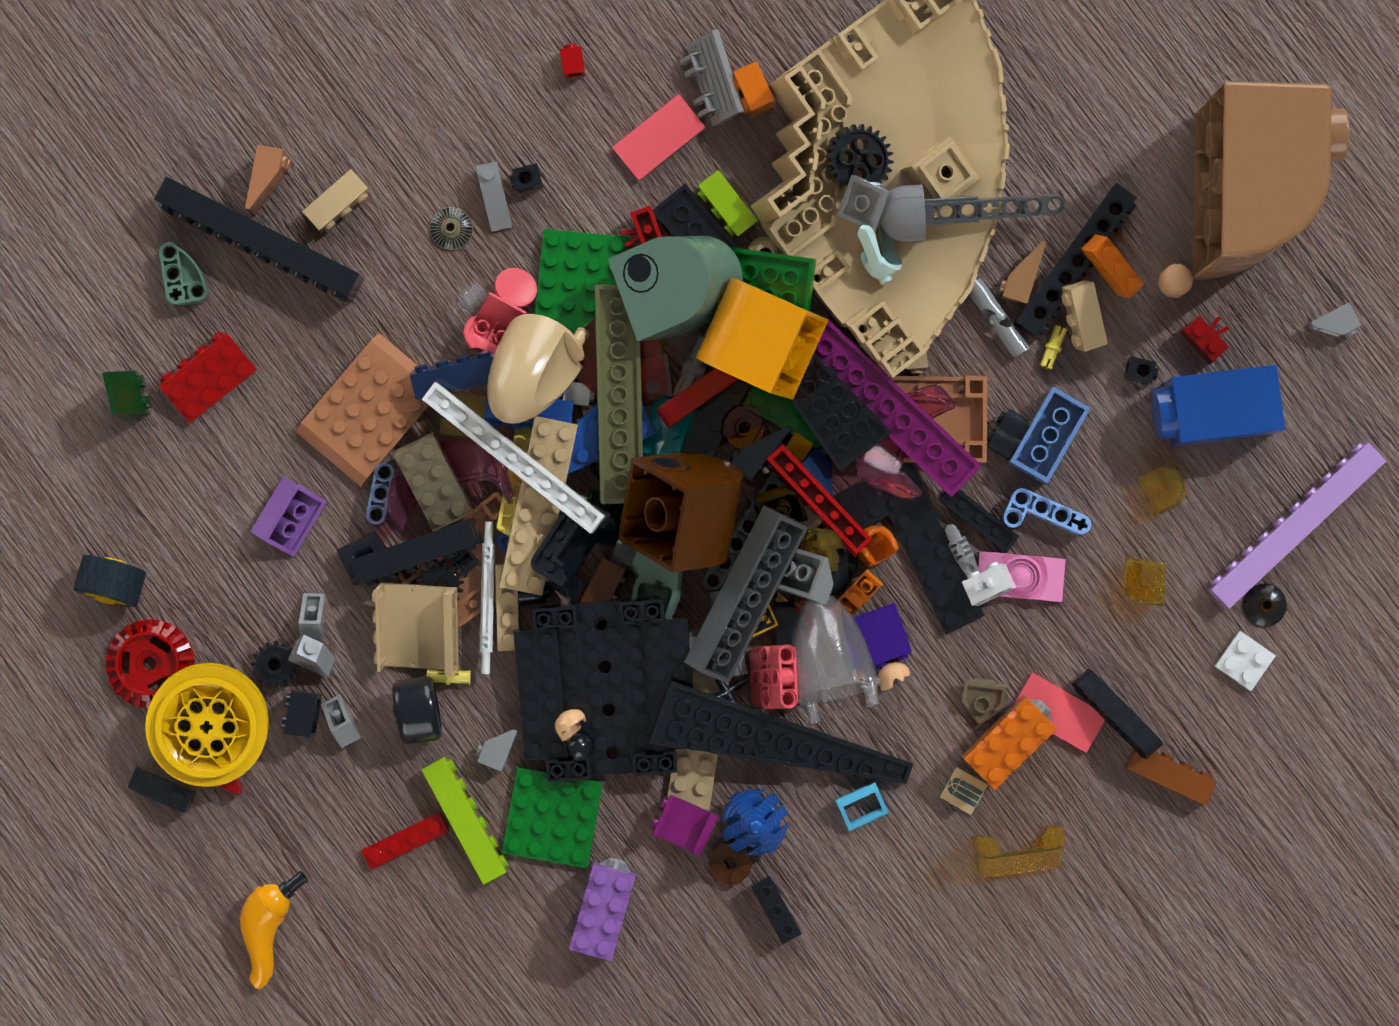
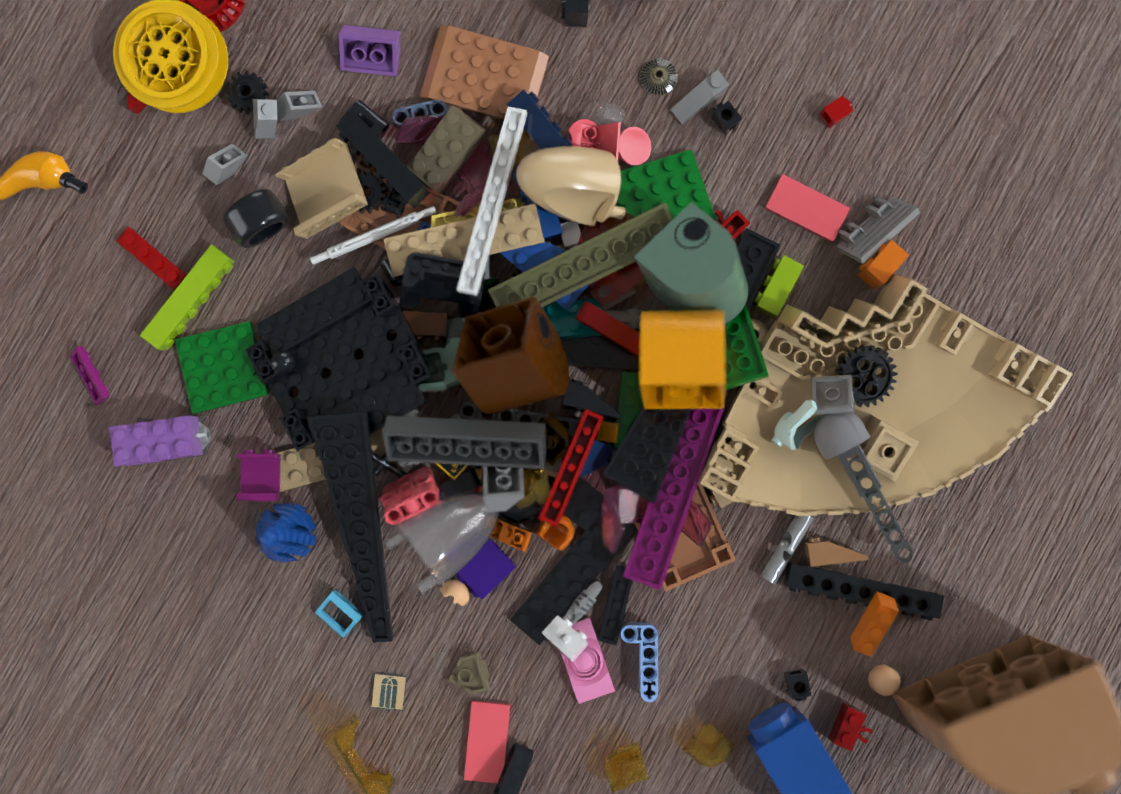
camera: 65 degrees right, 0 degrees up
(162, 790) = (103, 50): black slope -> none
(302, 713) = (214, 129): black brick -> none
(460, 677) = (301, 243): light yellow pin -> none
(496, 750) = (254, 298): light grey slope -> none
(500, 957) = (89, 375): none -> magenta plate
(506, 613) = (366, 257): tan plate -> none
(569, 723) = (297, 345): light nougat hair -> none
(718, 867) = (236, 523): reddish brown plate -> none
(731, 421) = (601, 368): reddish brown plate -> none
(775, 909) = (223, 581): black brick -> none
(1008, 433) = (696, 598): black brick -> none
(1010, 740) = (443, 714): orange piece -> none
(1049, 435) = (710, 633): medium blue brick -> none
(1053, 347) = (783, 603): light yellow pin -> none
(1084, 315) = (822, 618): tan brick -> none

